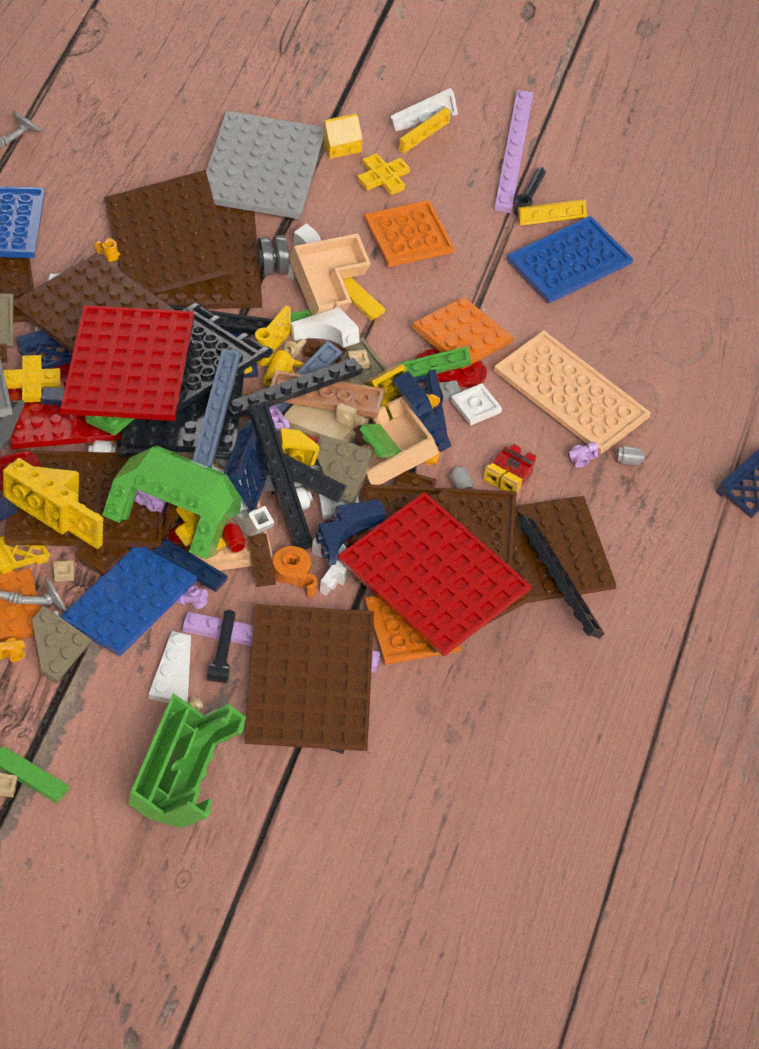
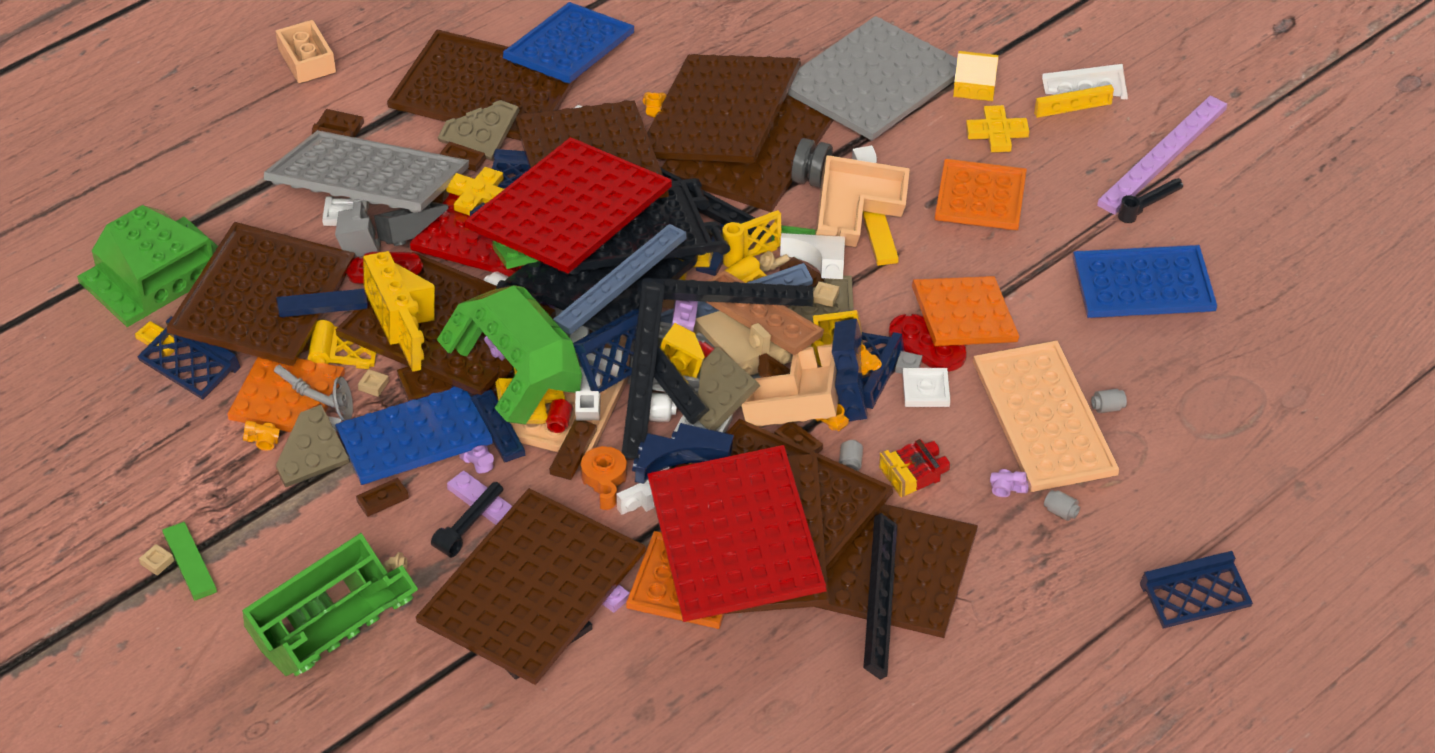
camera: 35 degrees right, 5 degrees down
(141, 659) = (382, 497): none -> reddish brown plate
(173, 670) = (403, 524): white wing -> none
(383, 444) = (772, 374): bright green tile -> none
(441, 362) = (911, 328): bright green tile -> none
(552, 212) = (1157, 227): yellow tile -> none
(608, 362) = (1108, 400): none -> light grey brick

